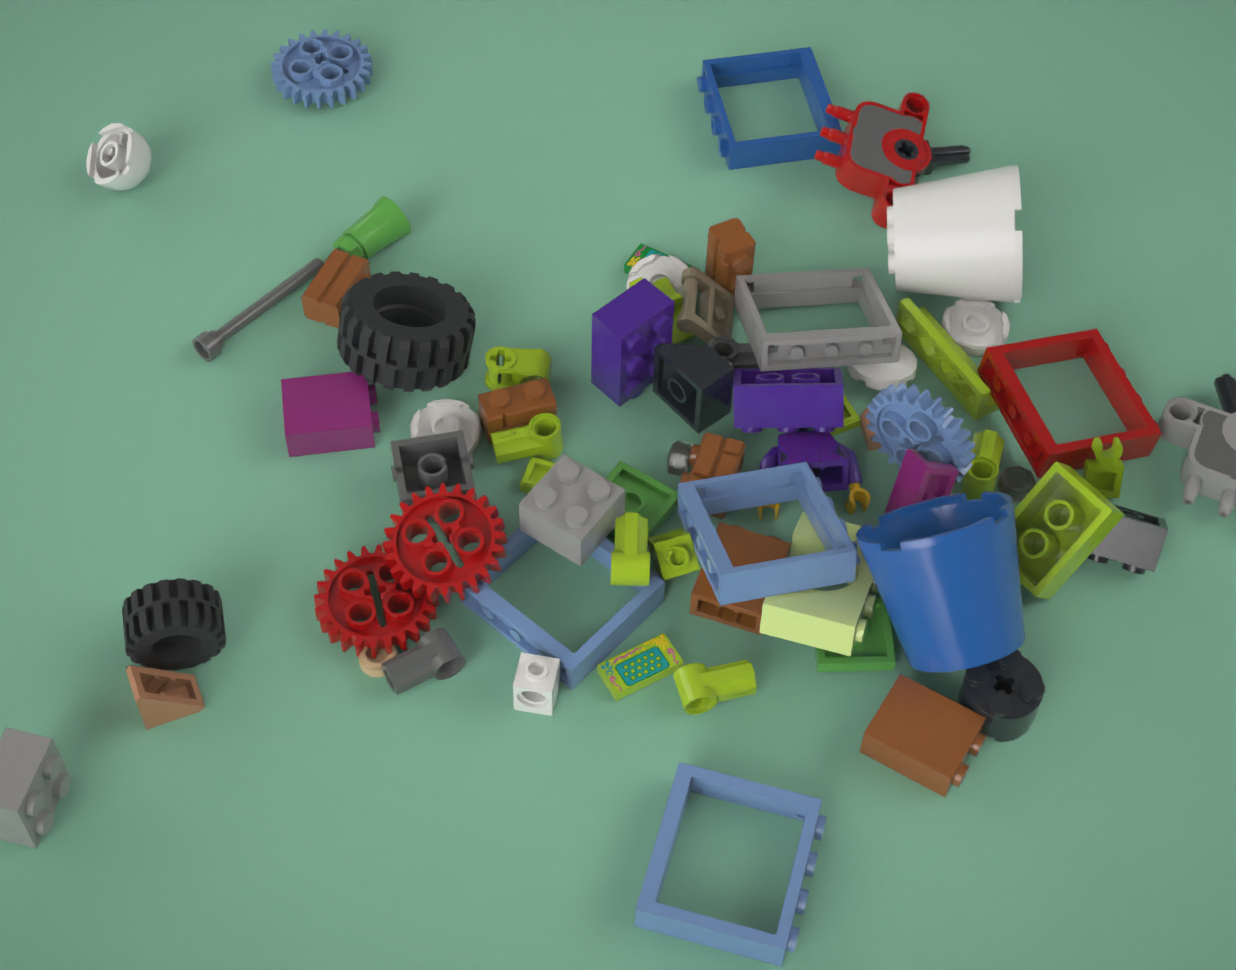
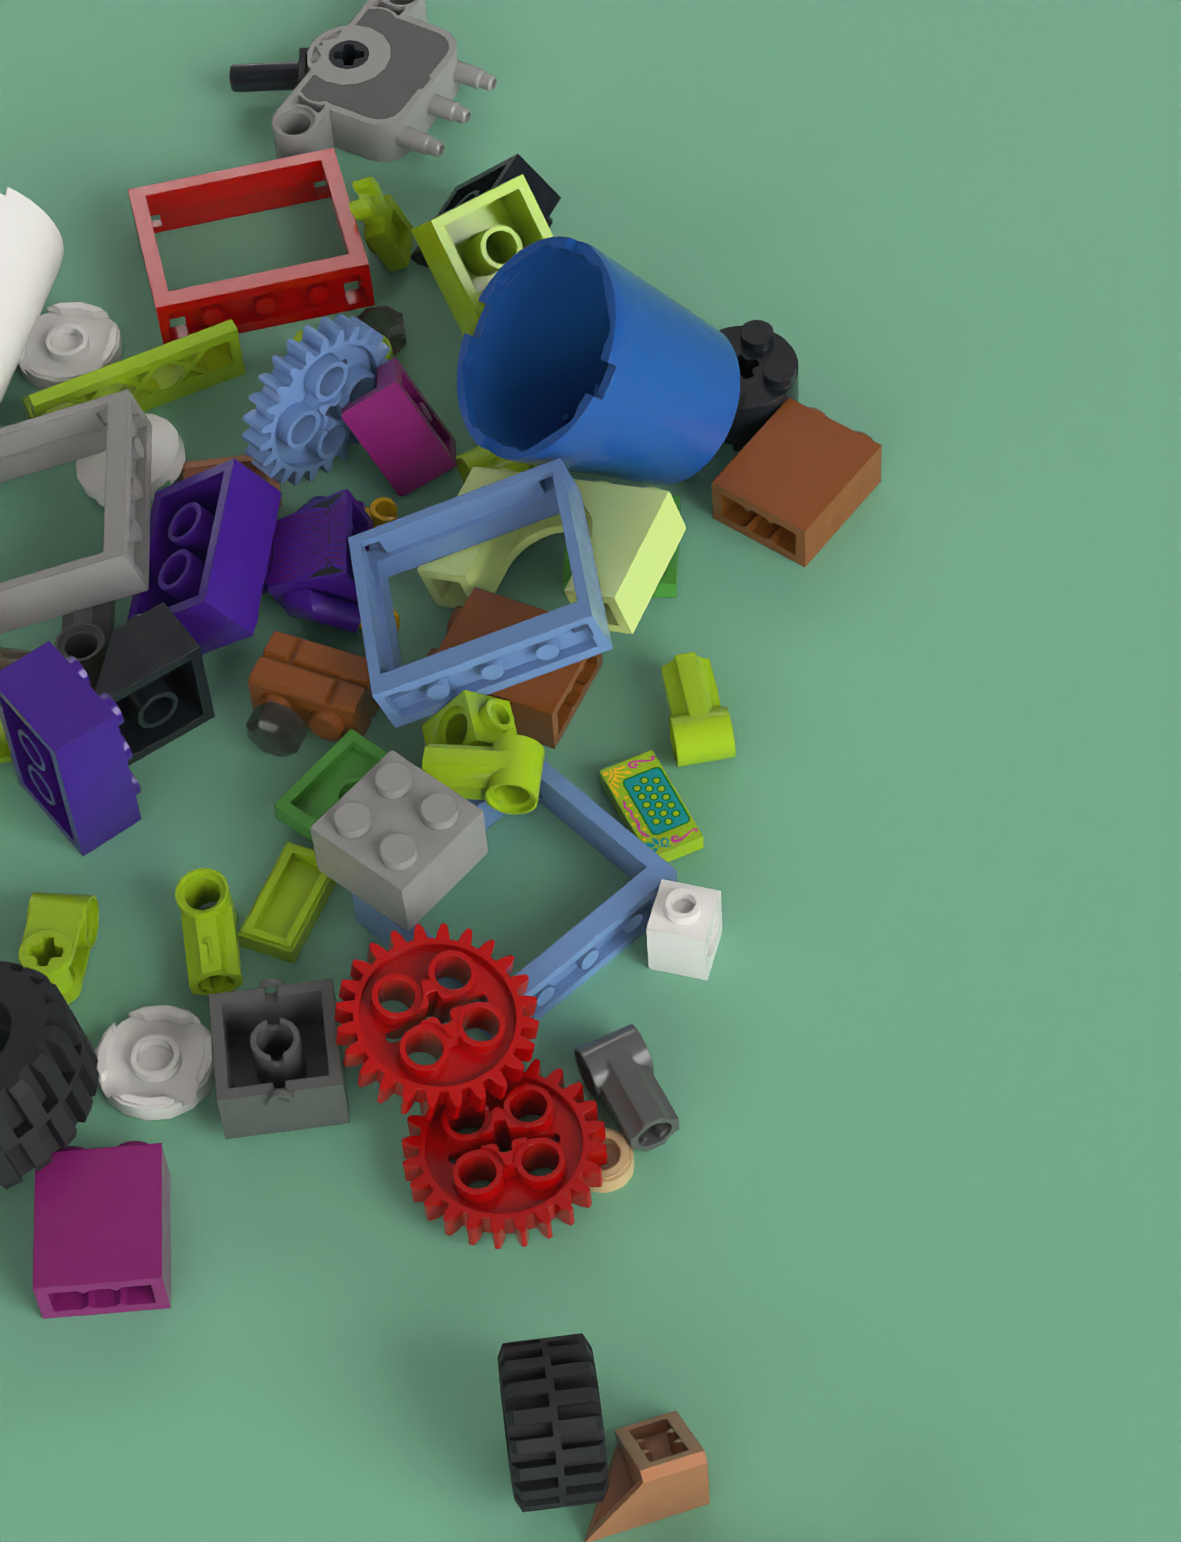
camera: 80 degrees left, 0 degrees up
(515, 405) = (148, 940): dark orange brick -> none
(713, 931) = (968, 786): medium blue window -> none

